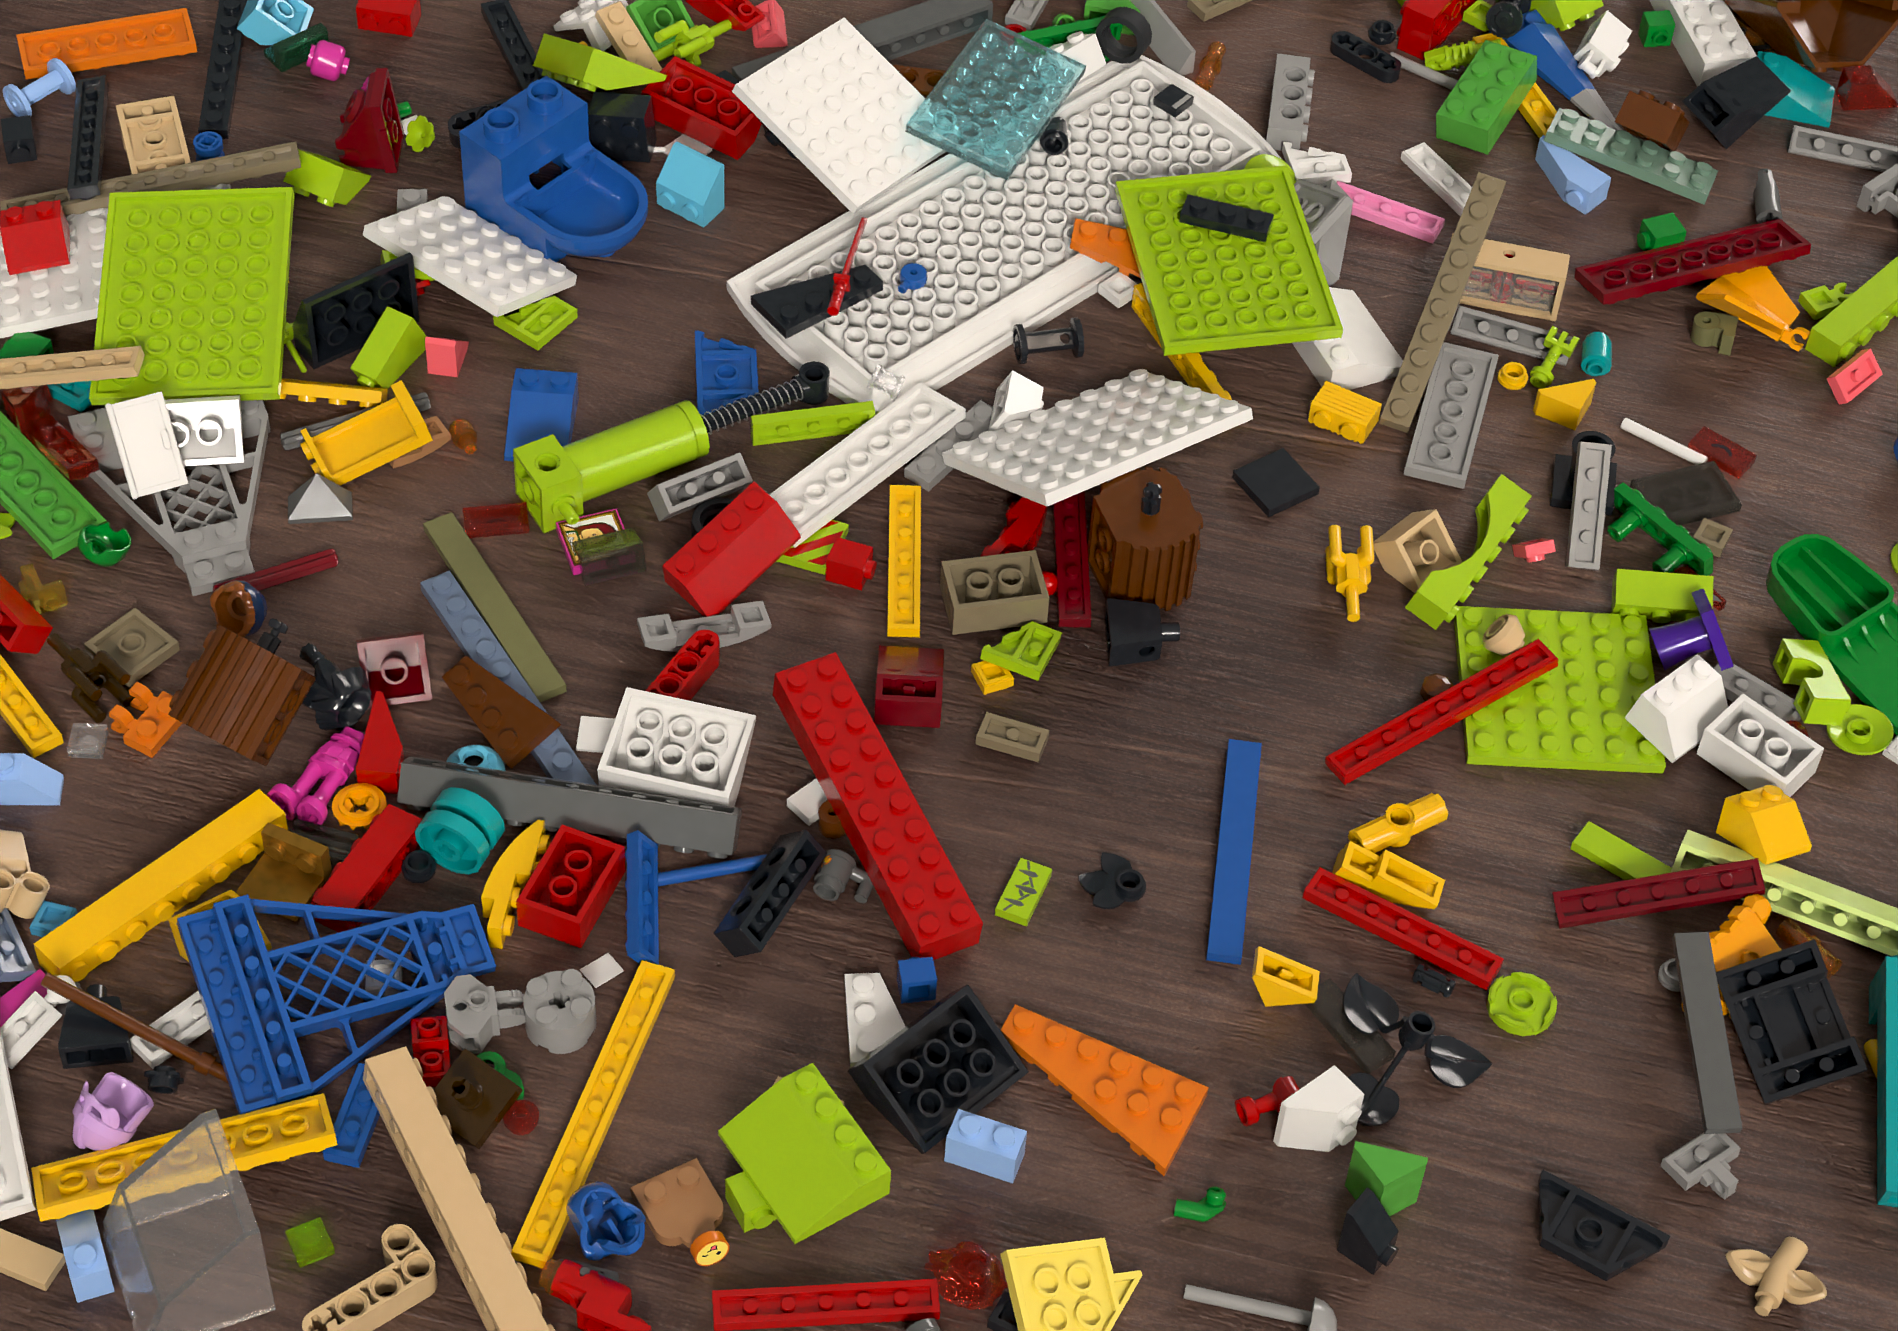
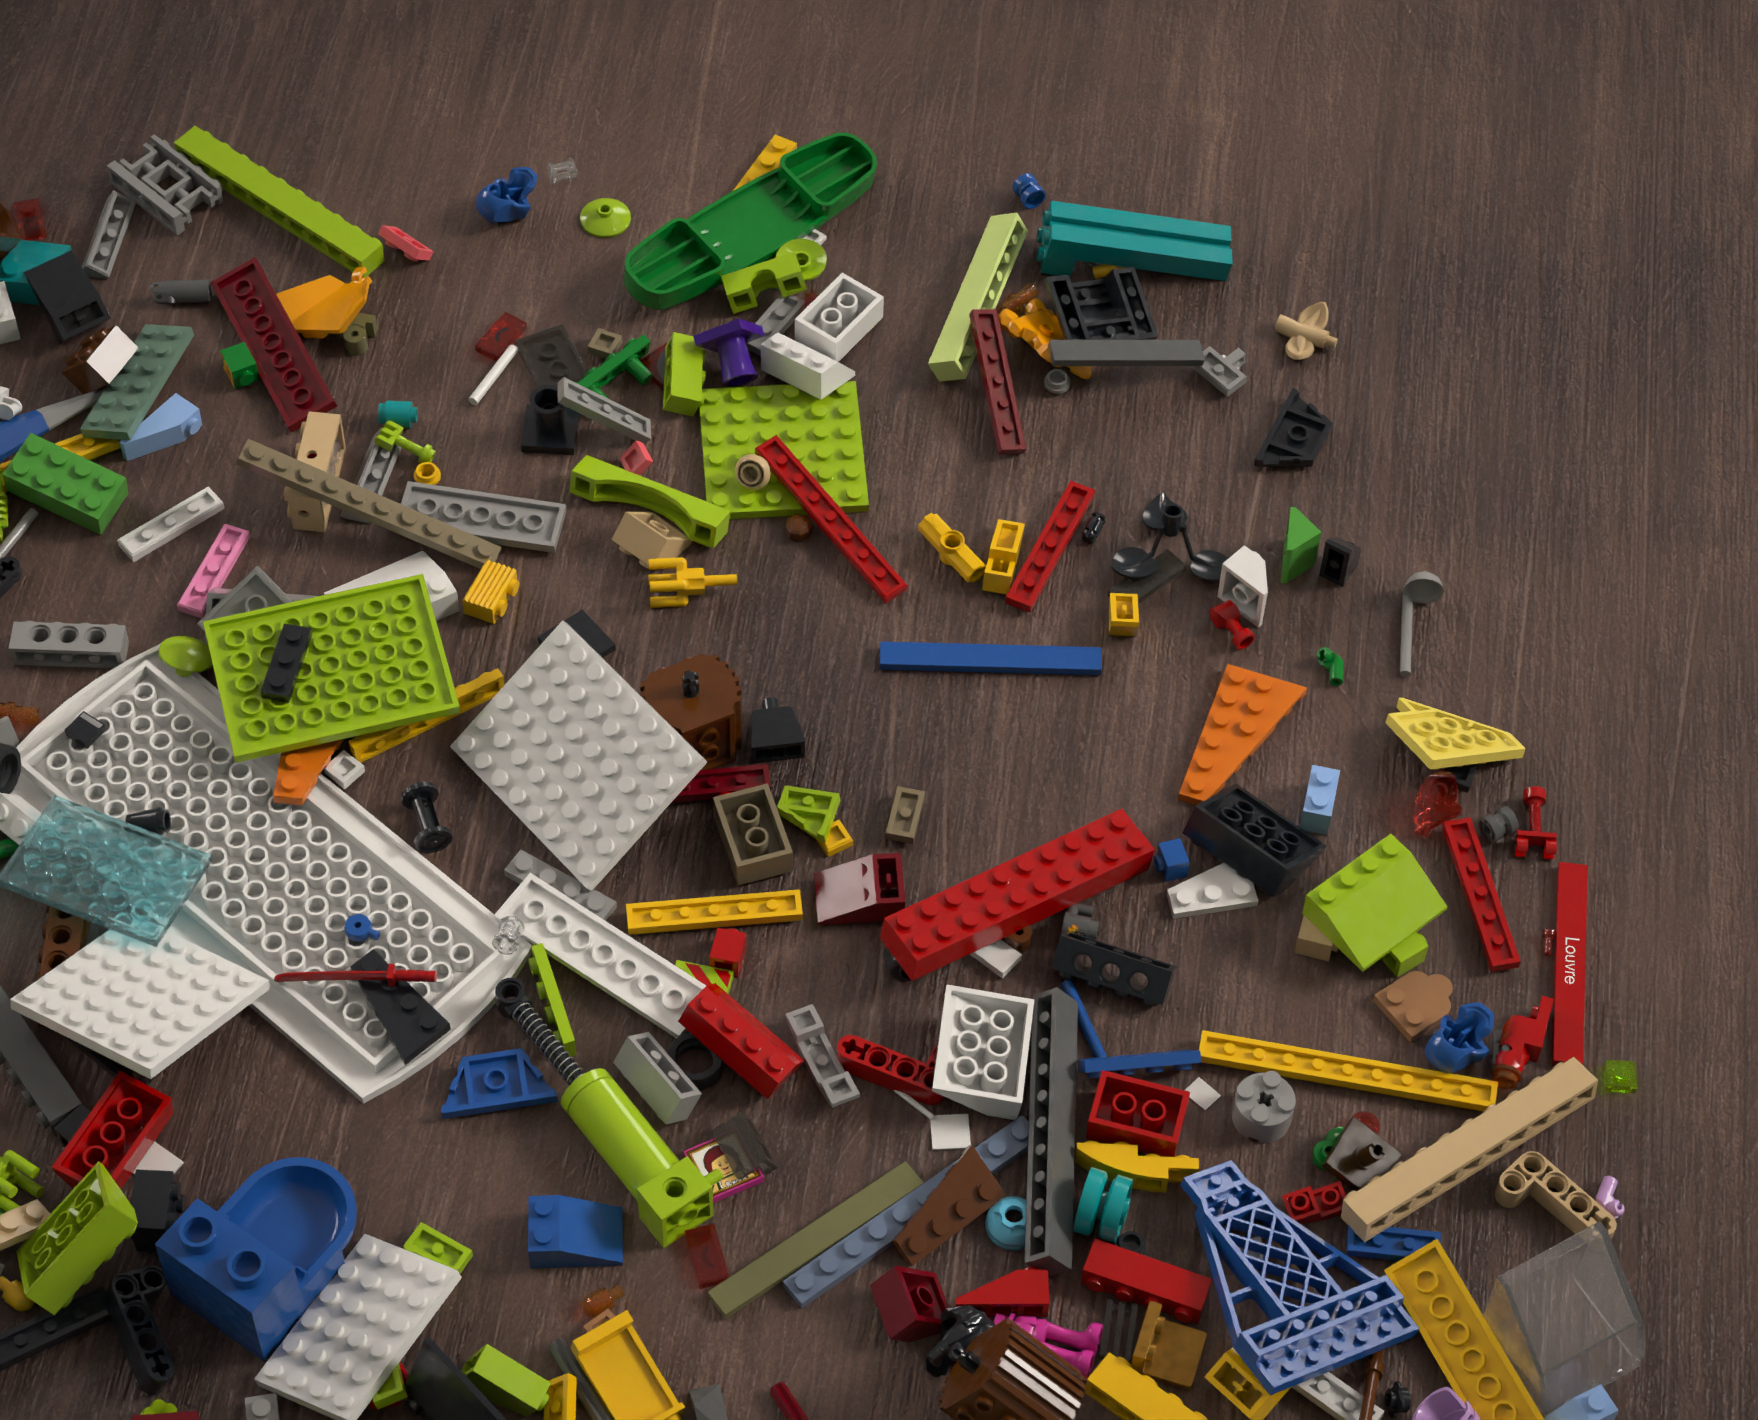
camera: 95 degrees left, 5 degrees up
(309, 1242) = (1513, 1256): clear neon green plate -> none
(358, 795) = (1068, 1295): light orange gear -> none
(445, 355) = (491, 1329): coral slope -> none
(479, 1012) = (1281, 1166): light grey hinge -> none
(691, 185) = (237, 1138): medium azure slope -> none
(709, 1248) = (1454, 974): tile -> none
(1015, 400) = (518, 836): white slope -> none
(1023, 528) = (684, 827): red slope -> none
(1023, 892) = (1062, 798): lime tile -> none
(1111, 882) = (1042, 740): black plate -> none
(1317, 165) = (157, 622): white wing -> none
(1521, 1004) = (1103, 473): lime tile -> none
(1565, 403) = (461, 432): yellow slope -> none
(1616, 854) = (951, 411): lime tile -> none
(1764, 824) = (917, 317): yellow slope -> none
(1822, 301) = (310, 259): lime plate -> none

